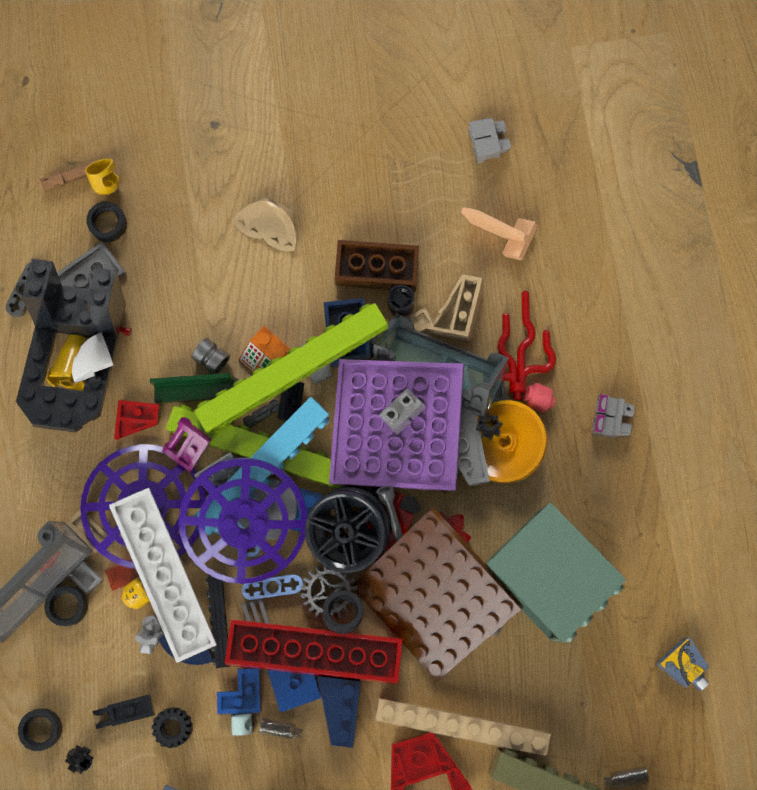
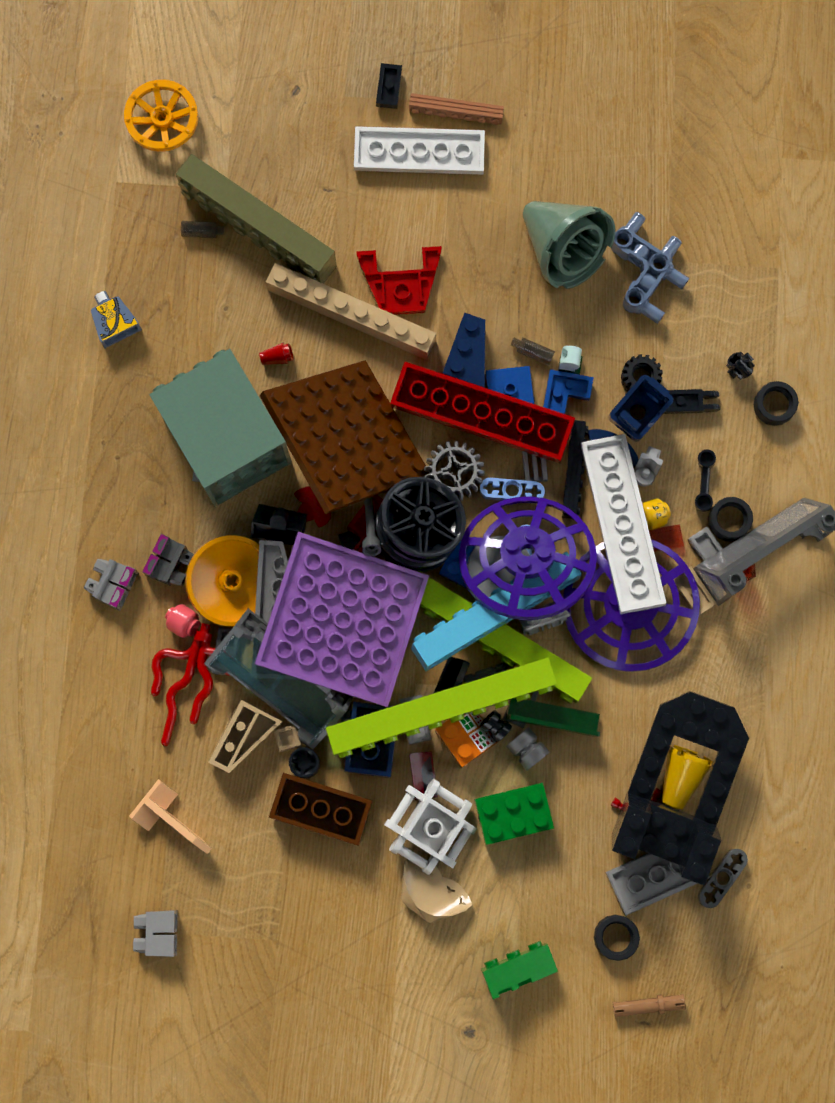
camera: 170 degrees left, 0 degrees up
(91, 358) = (658, 769): white brick -> none
(93, 617) = (706, 461): none -> black bar
(102, 177) = (612, 991): yellow helmet -> none
(135, 417) = (623, 702): red wing -> none
(150, 694) = (651, 397): none -> dark blue piece
(183, 177) = (518, 969): none -> green wedge
(192, 447) = (567, 648): magenta plate -> none
(212, 300) = (514, 813): none -> green brick
(241, 369) = (497, 727): none -> black wheel
(280, 272) = (431, 827): none -> white brick
(297, 316) = (422, 770): none -> slope
(342, 628) = (426, 440): black tyre -> none
(402, 408) = (332, 626): light grey hips -> none
(477, 502) = (277, 524): none -> black piece
(489, 426) = (248, 593): black gear -> none
(520, 666) = (278, 354): none -> red cone
(568, 449) = (163, 570): none -> dark grey hips

